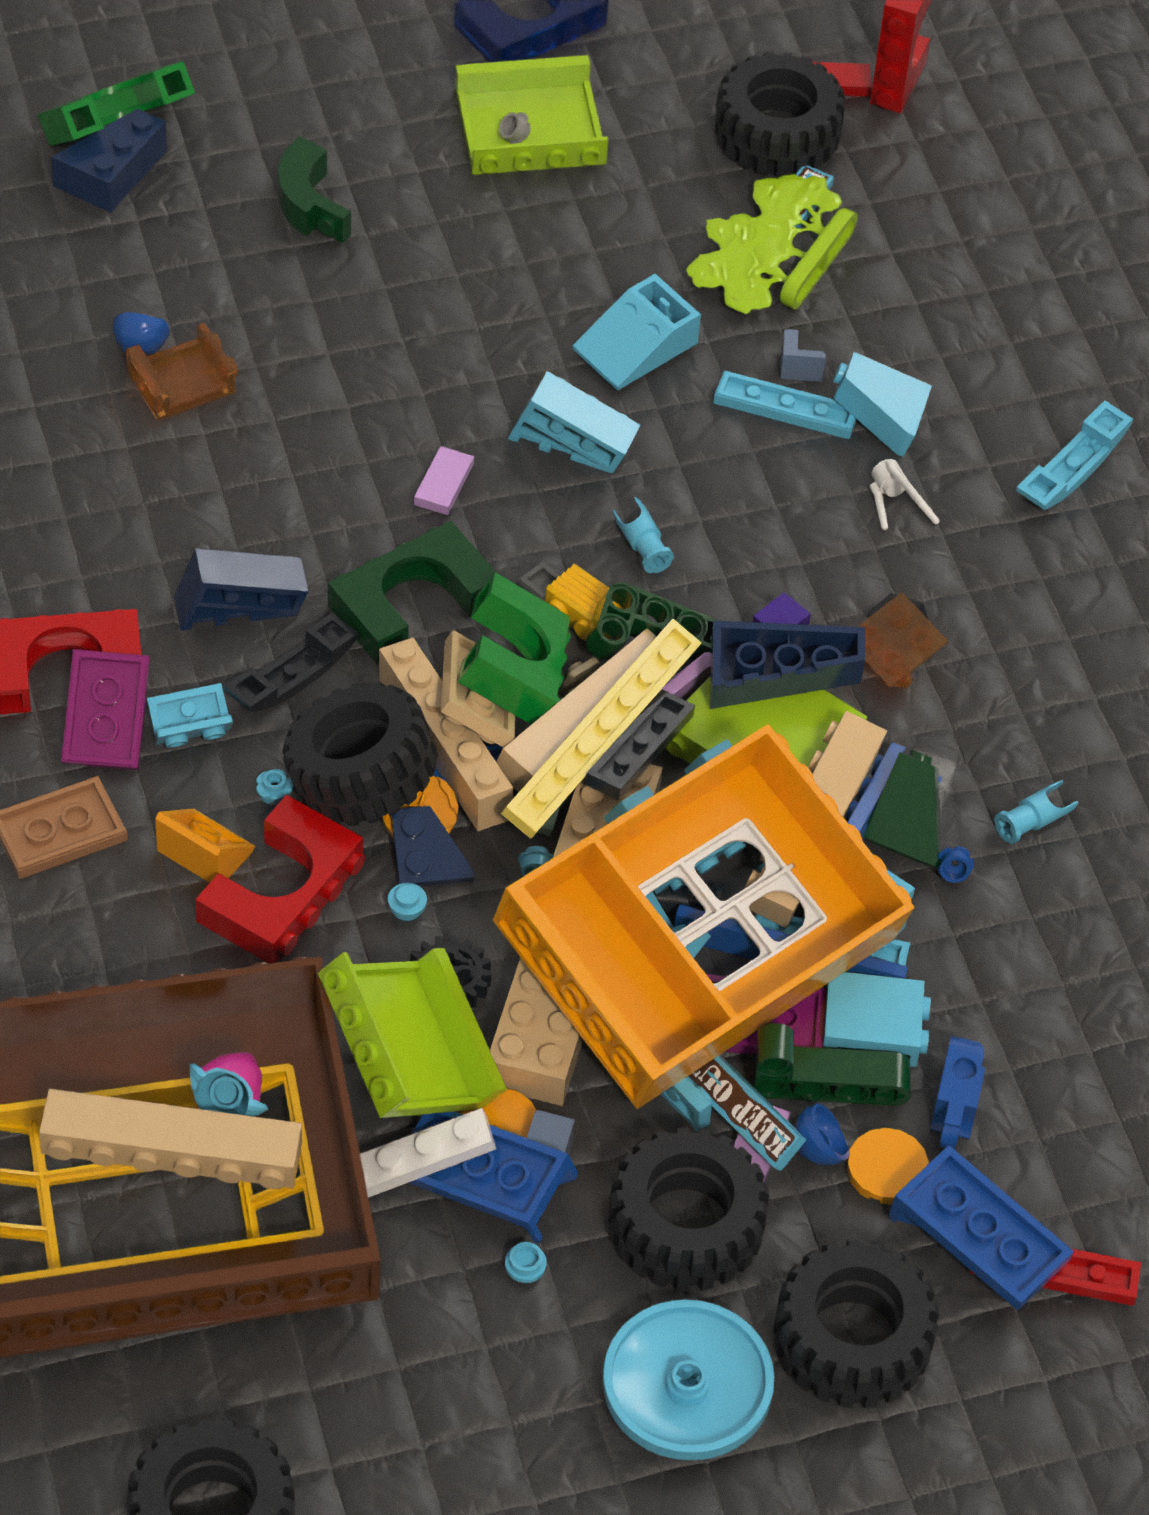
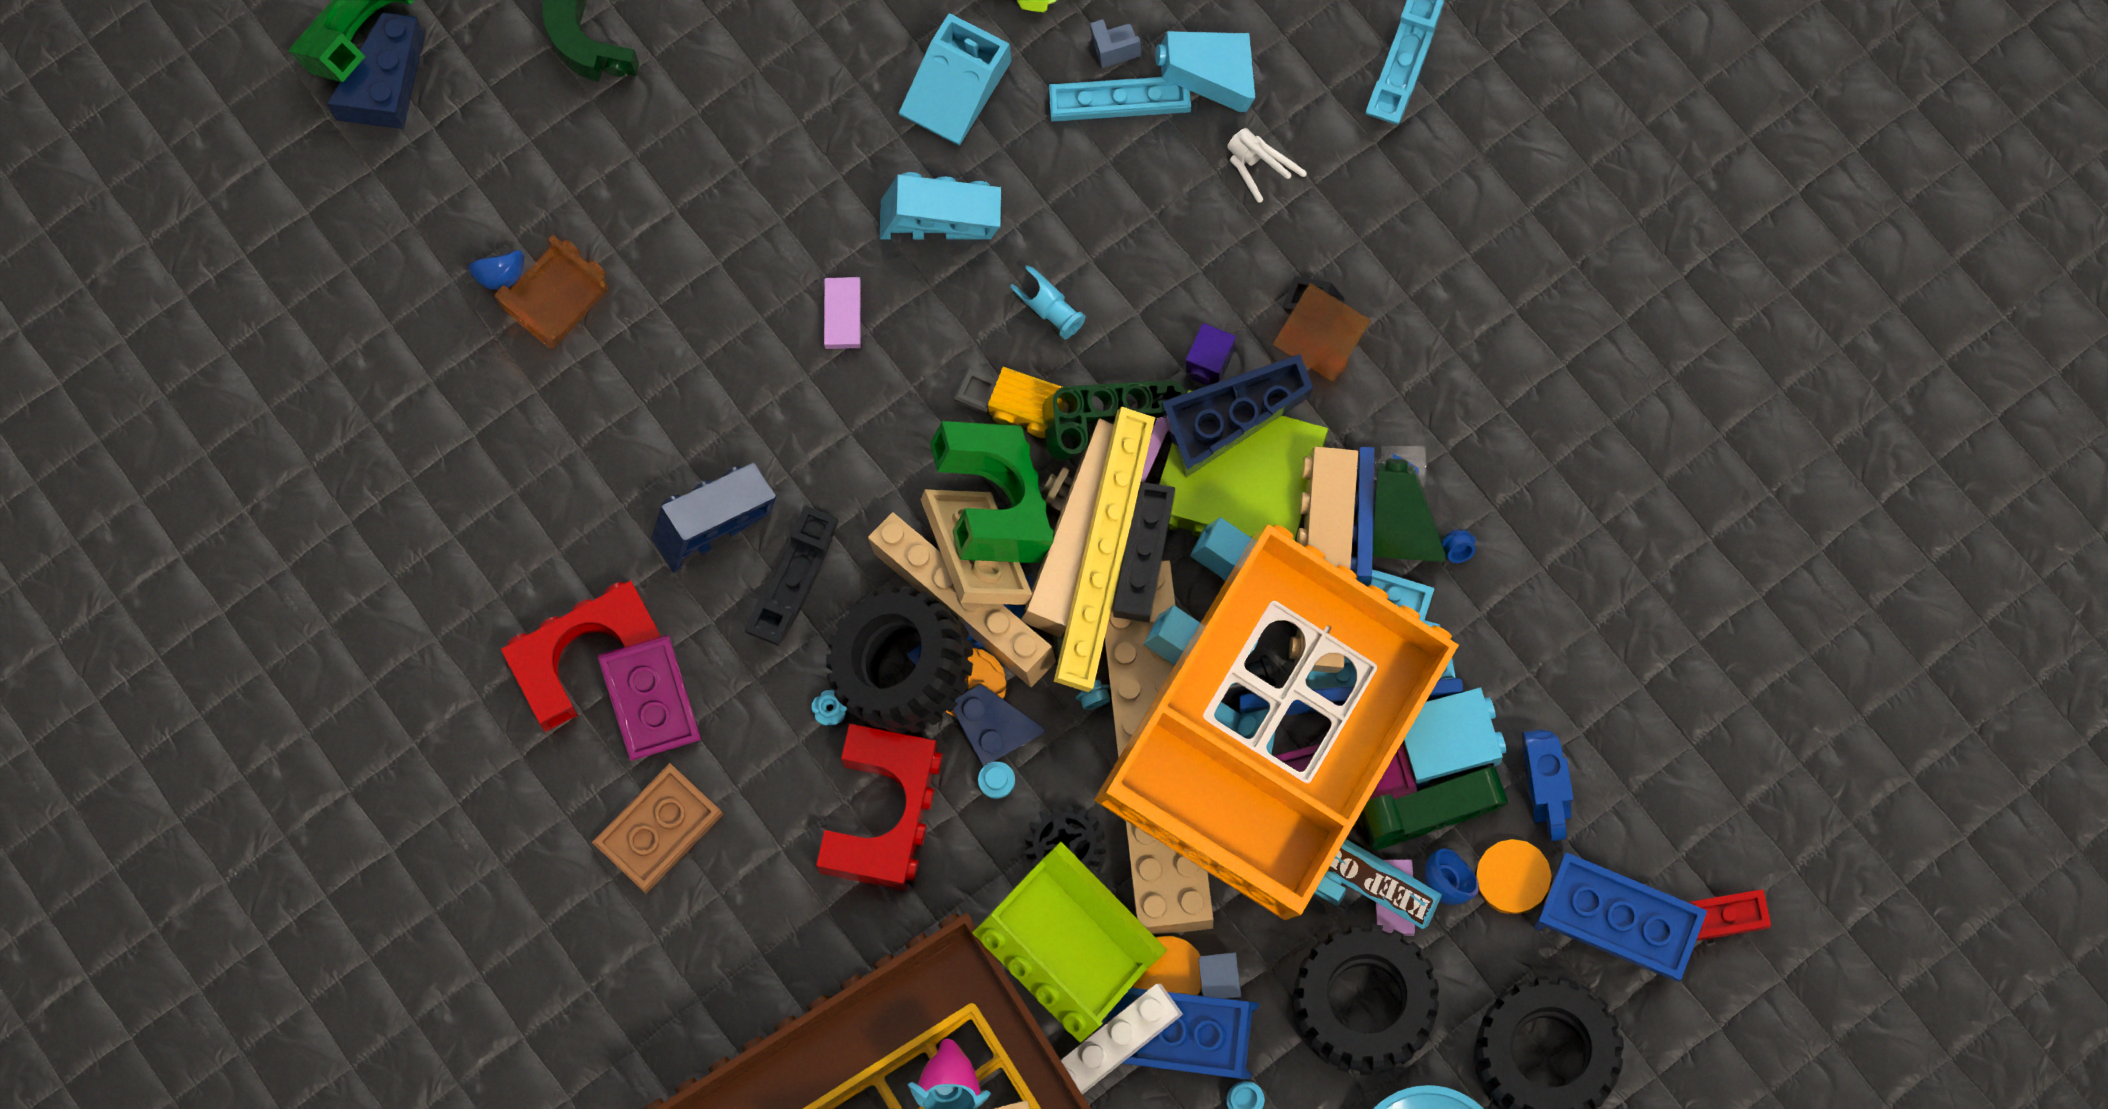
camera: 10 degrees left, 20 degrees up
(189, 715) = (724, 668): medium azure bracket -> none
(200, 843) = (793, 794): light orange slope -> none
(437, 556) = (874, 403): dark green arch -> none
(1031, 813) = (1506, 464): medium azure piece -> none

